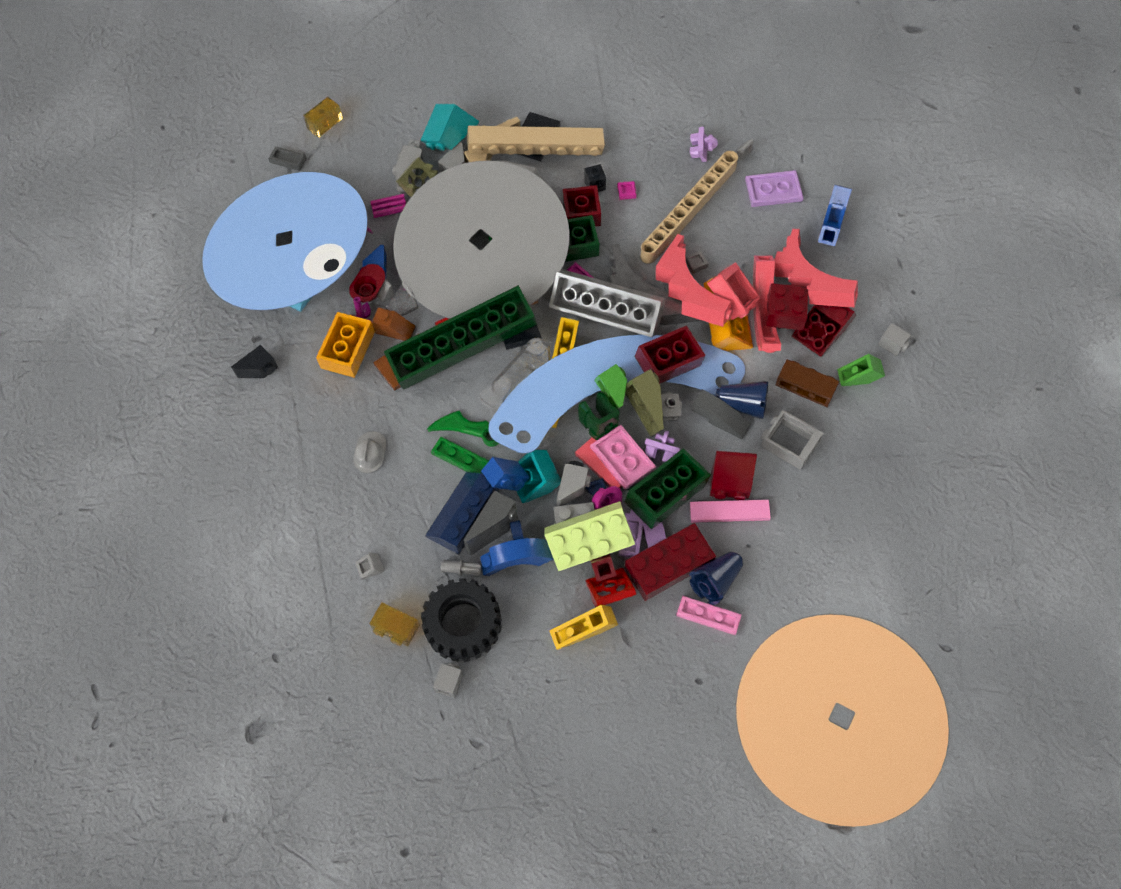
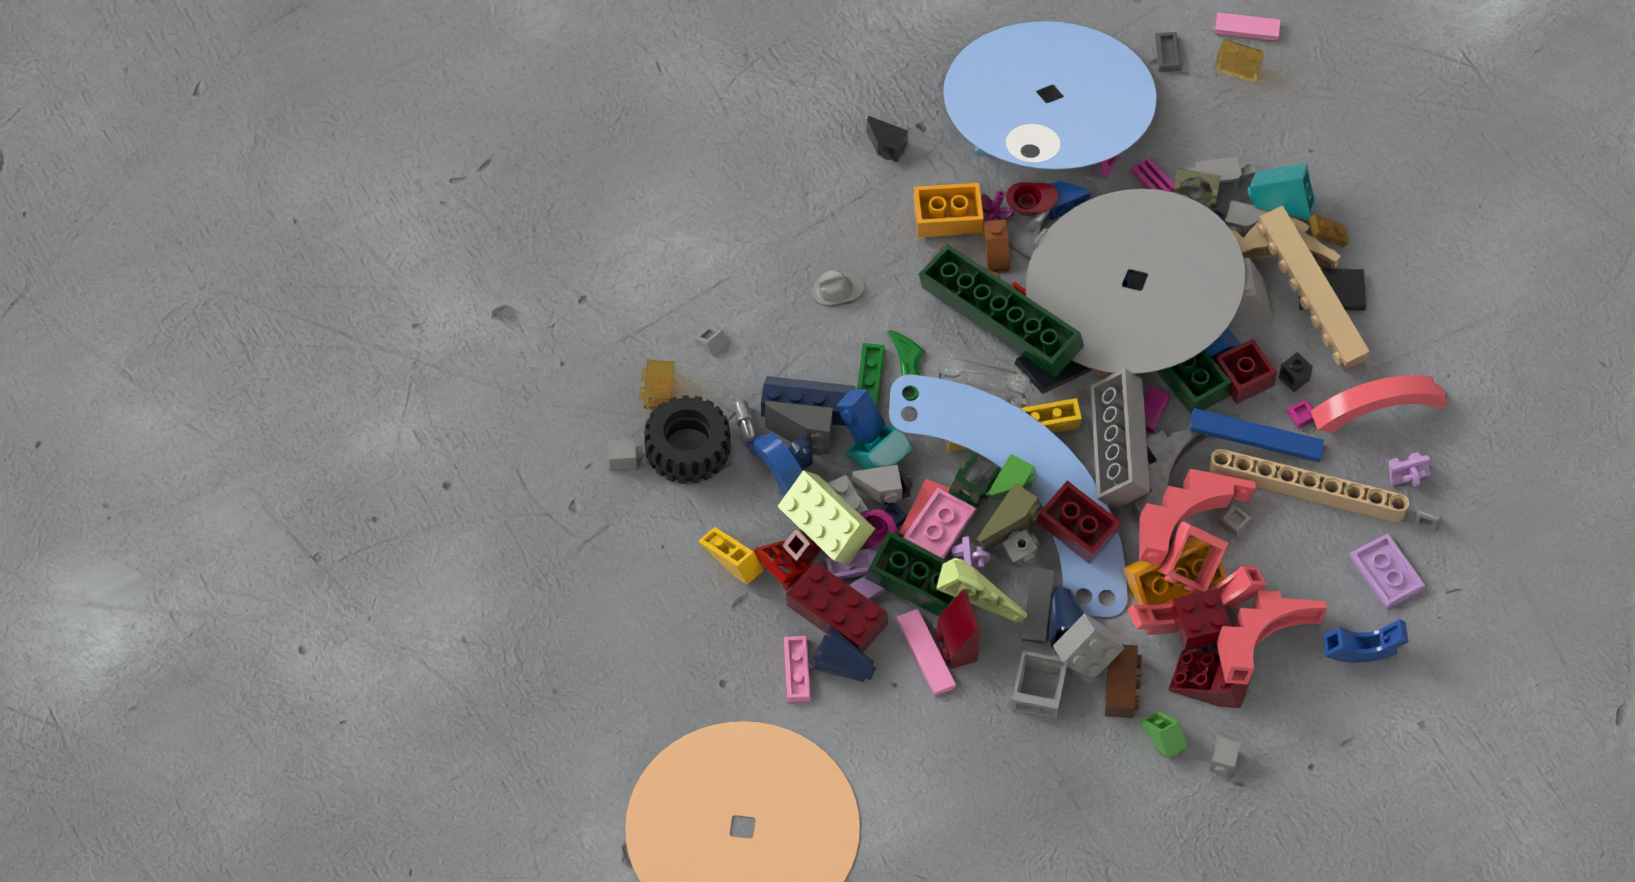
camera: 65 degrees right, 5 degrees down
(295, 104) = (1247, 26): none -> bright pink tile
(491, 116) = (1329, 230): none -> pearl gold plate
(637, 220) = (1256, 435): none -> blue tile
(644, 141) = (1377, 395): none -> coral arch
(700, 449) = (959, 576): none -> yellowish green wedge
(783, 389) = (1088, 647): none -> light grey brick

